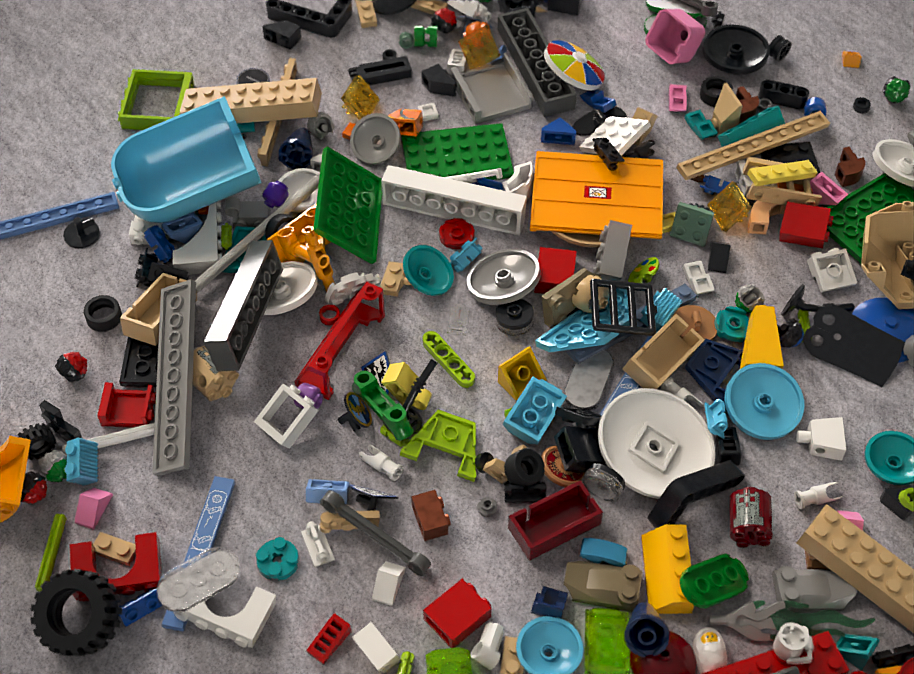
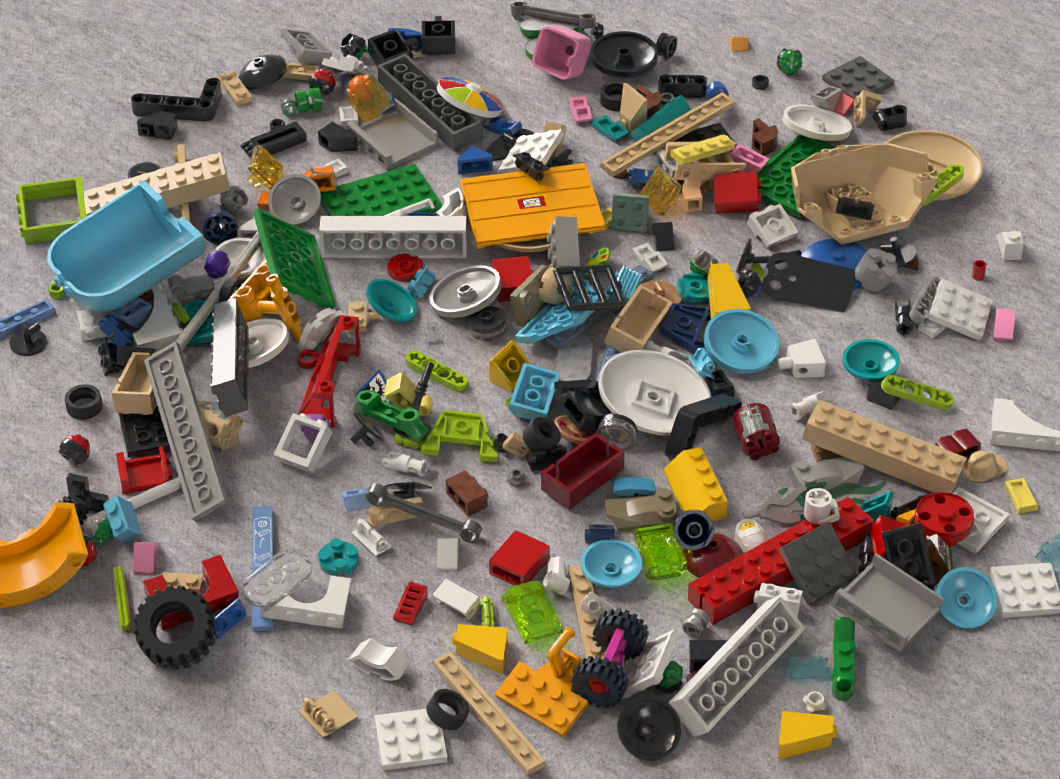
camera: 15 degrees left, 10 degrees down
(714, 581) = (739, 483): green tile -> none

